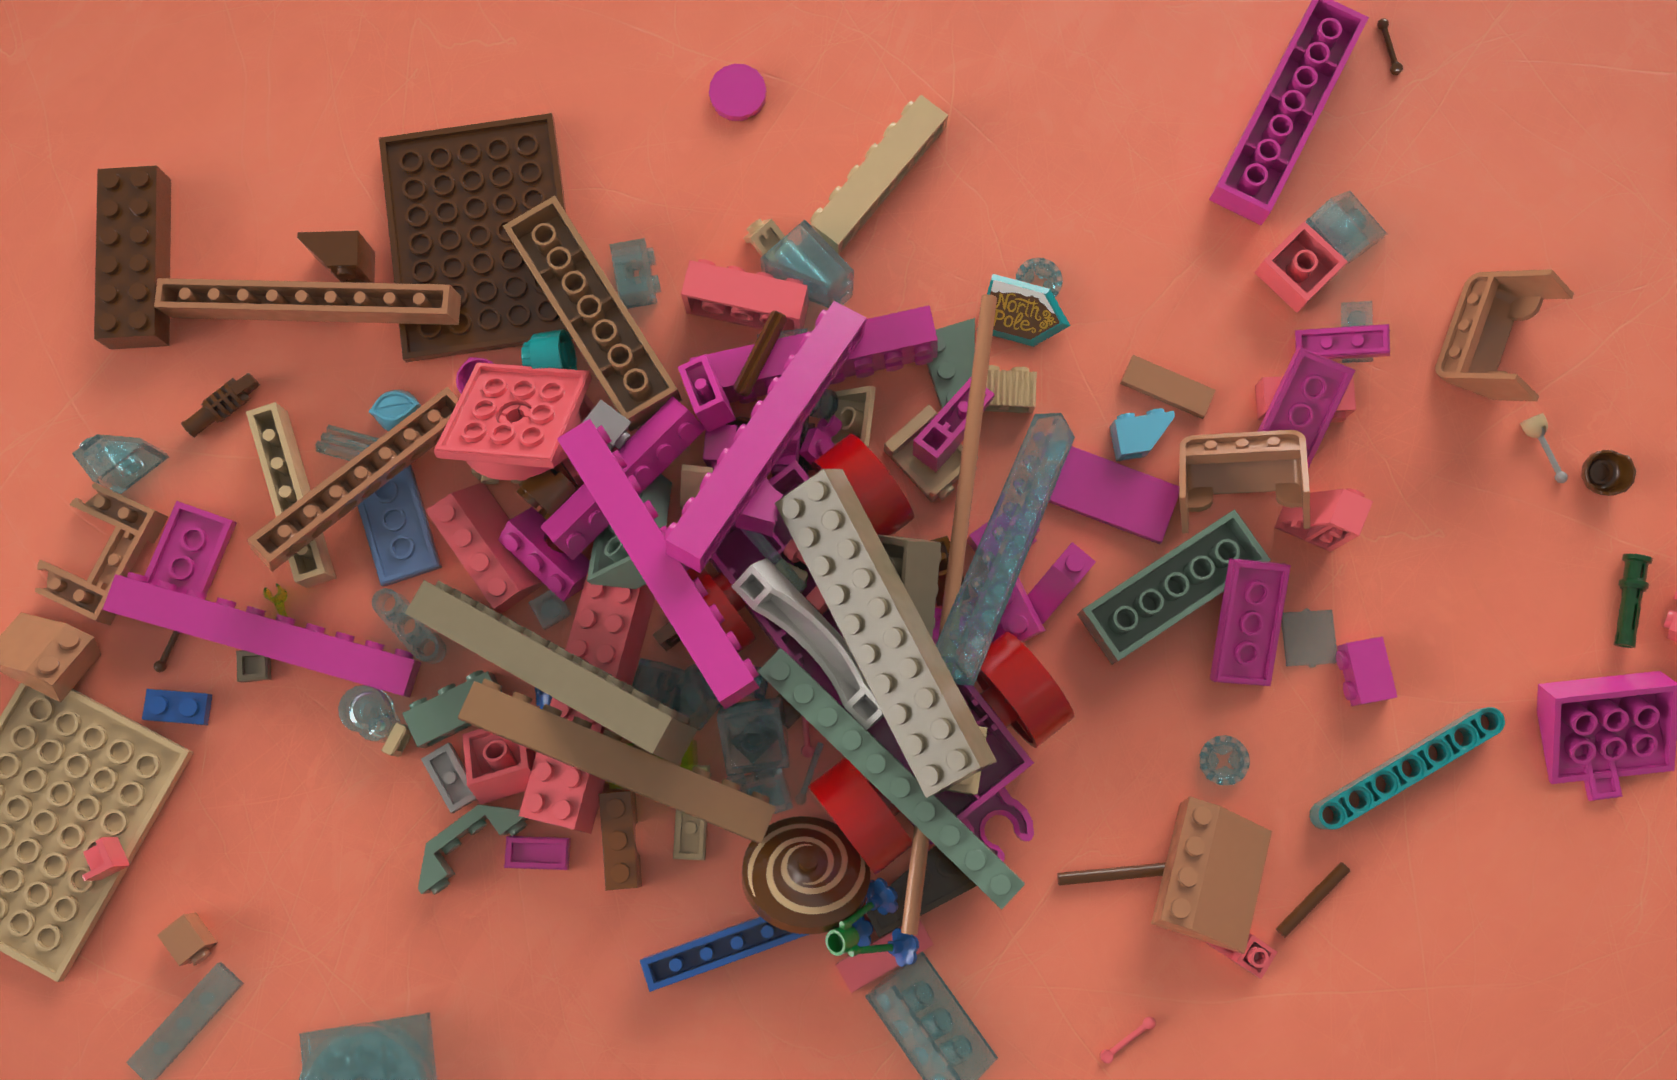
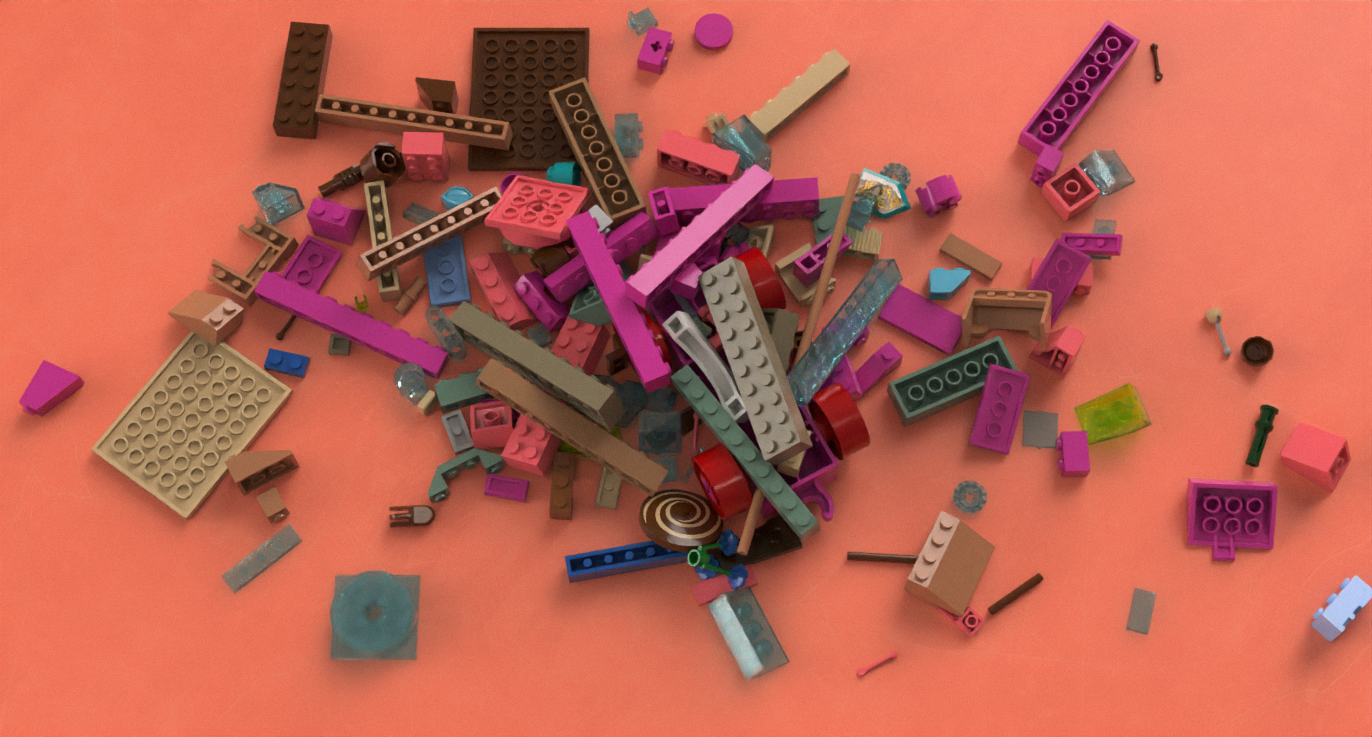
camera: 10 degrees right, 10 degrees down
(105, 859) = (229, 445): coral panel -> none
(143, 895) = (258, 468): none -> nougat slope
(212, 470) = (335, 220): none -> dark pink slope
(272, 376) = (382, 164): none -> reddish brown brick
(332, 354) = (425, 156): none -> coral brick
(346, 573) = (410, 295): none -> nougat pin
(406, 921) = (417, 515): none -> reddish brown arm
(629, 91) = (641, 21): none -> clear light blue bracket
(652, 119) = (658, 41): none -> dark pink brick
(760, 353) = (702, 191): reddish brown axle -> none
(1004, 337) = (863, 208): none -> clear light blue slope
(1109, 299) = (939, 194): none -> dark pink brick
(1261, 232) = (1046, 165): none -> dark pink brick
(1413, 602) = (1113, 414): none -> clear neon green slope
(1421, 766) = (1097, 511): teal beam -> none
(1482, 327) = (1190, 247): nougat windscreen -> none
(1499, 897) = (1141, 611): none -> clear light blue tile

